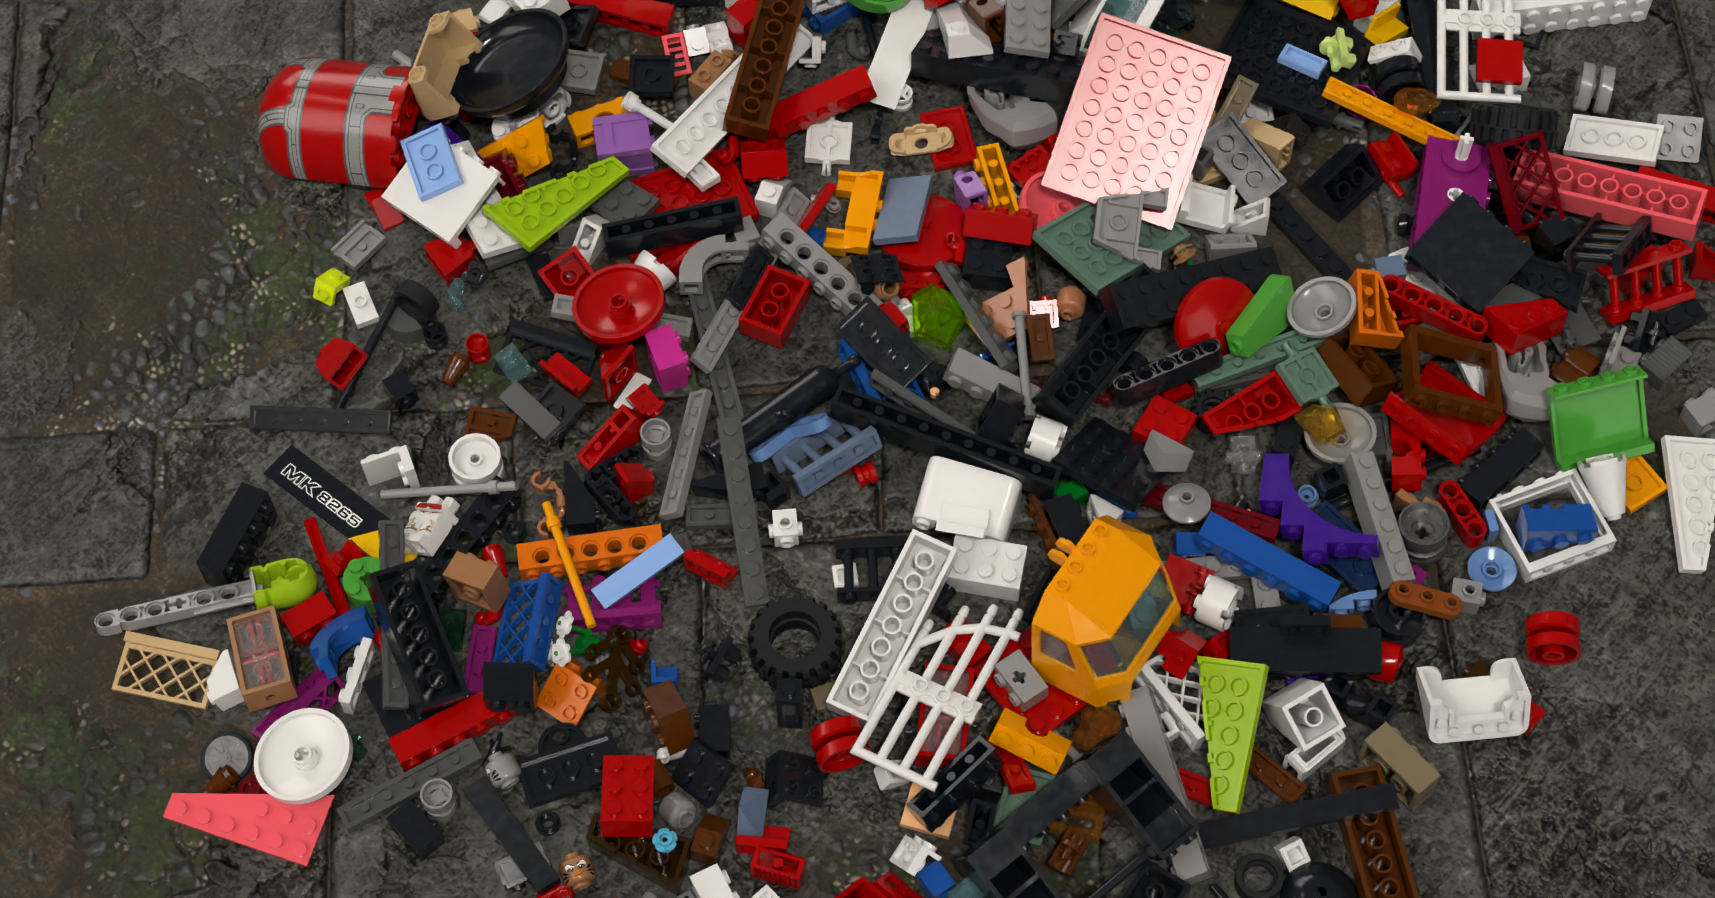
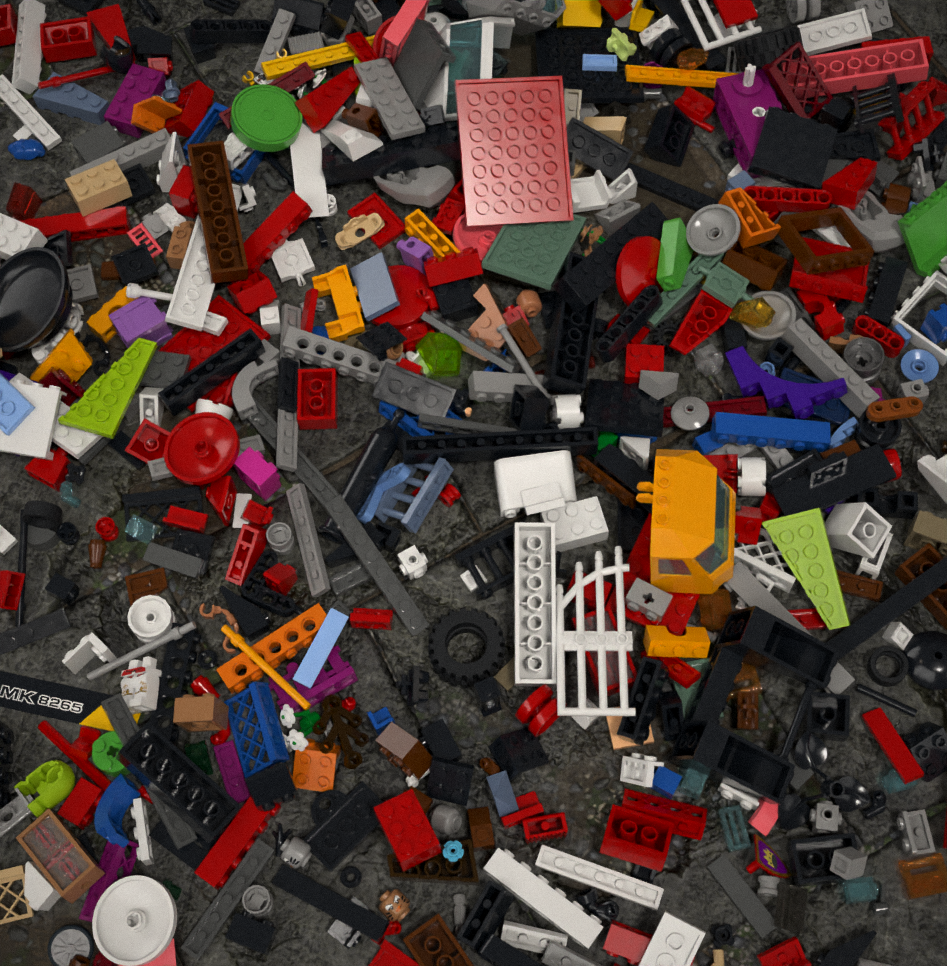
camera: 25 degrees left, 5 degrees up
(732, 152) = (225, 297): red arm -> none
(1119, 225) = (539, 231): light grey wing -> none

